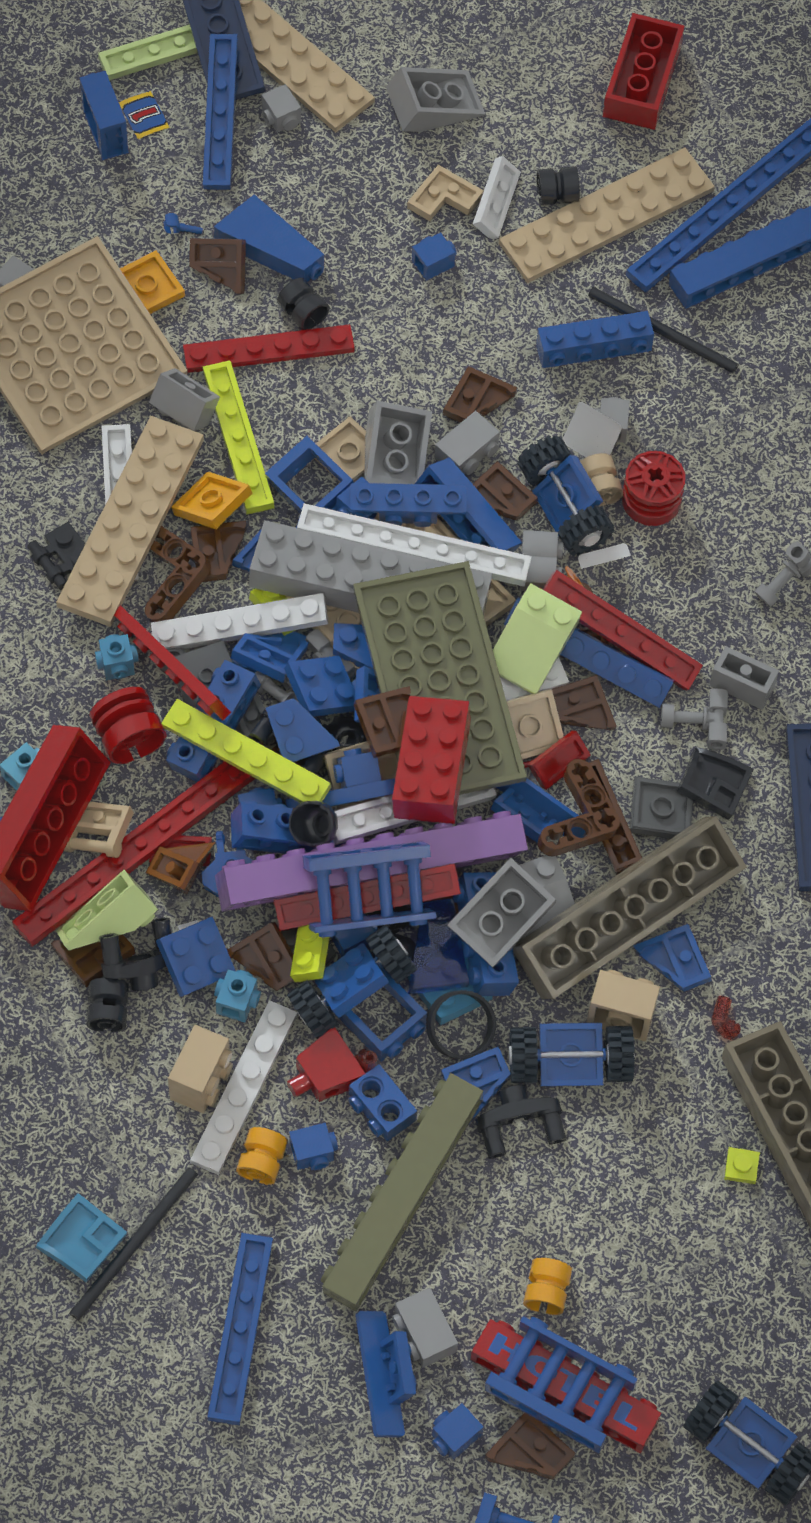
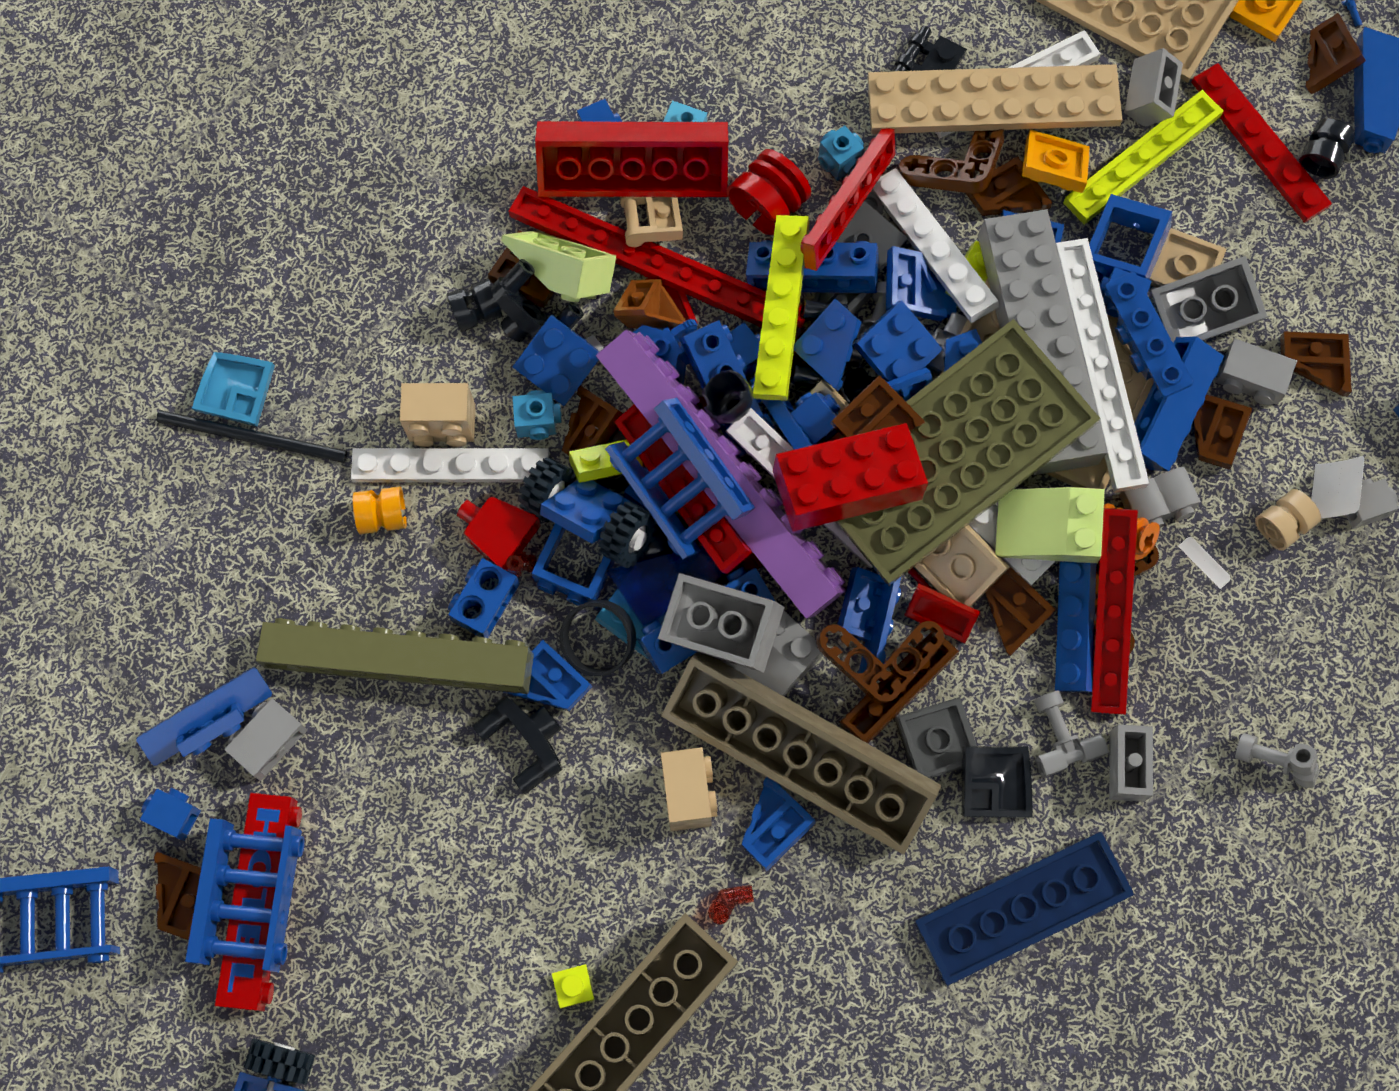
camera: 70 degrees right, 10 degrees up
(240, 1329) = (200, 567): blue plate -> none
(313, 1147) = (410, 553): blue brick -> none
(548, 1283) = (348, 840): light orange wheel -> none
(566, 495) = (1249, 491): plate -> none
(571, 1054) = (611, 759): plate -> none
(653, 488) = (1292, 585): red wheel -> none

